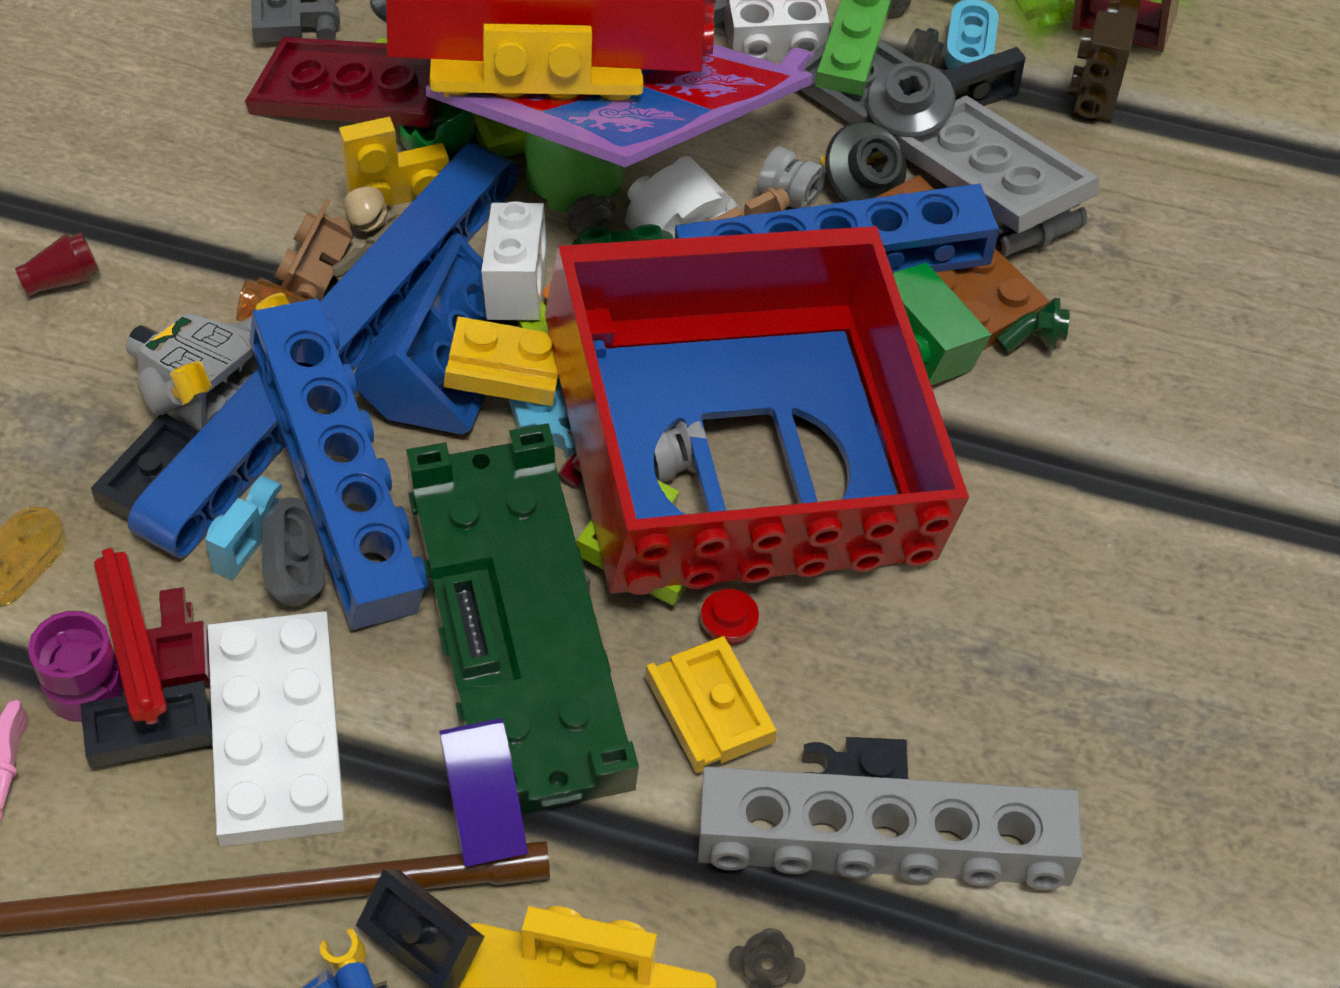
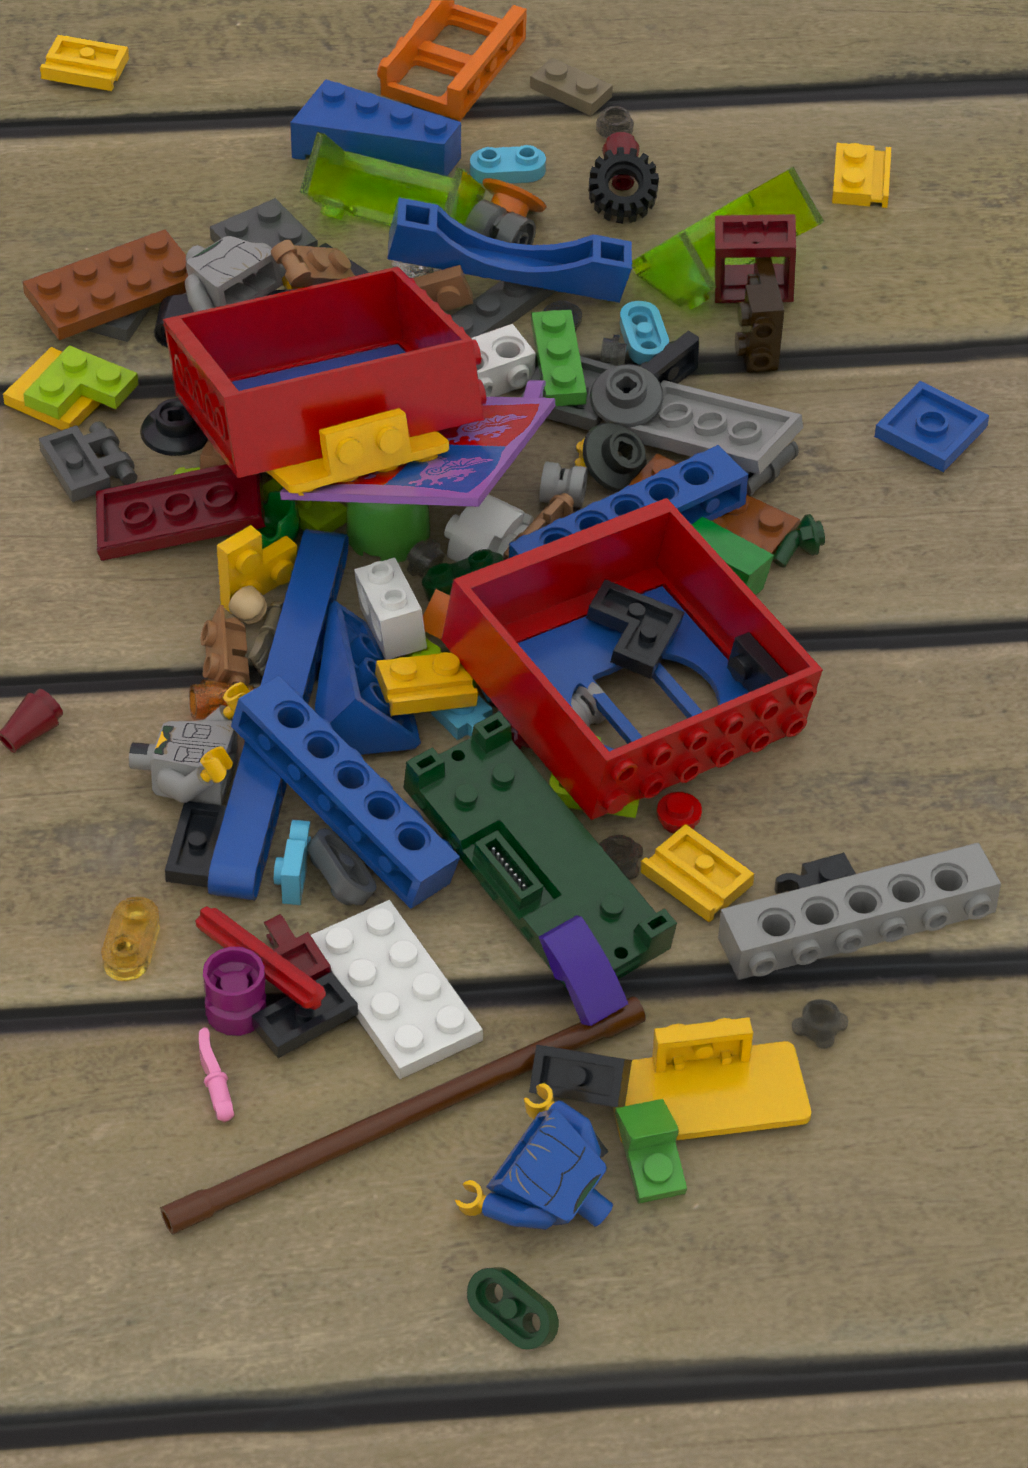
camera: 20 degrees left, 5 degrees down
(634, 637) = (627, 850): none -> clear smoke plate
(791, 375) = (645, 625): none -> black plate
(900, 460) = (752, 664): none -> black plate
(1261, 238) = (931, 426): none -> blue plate

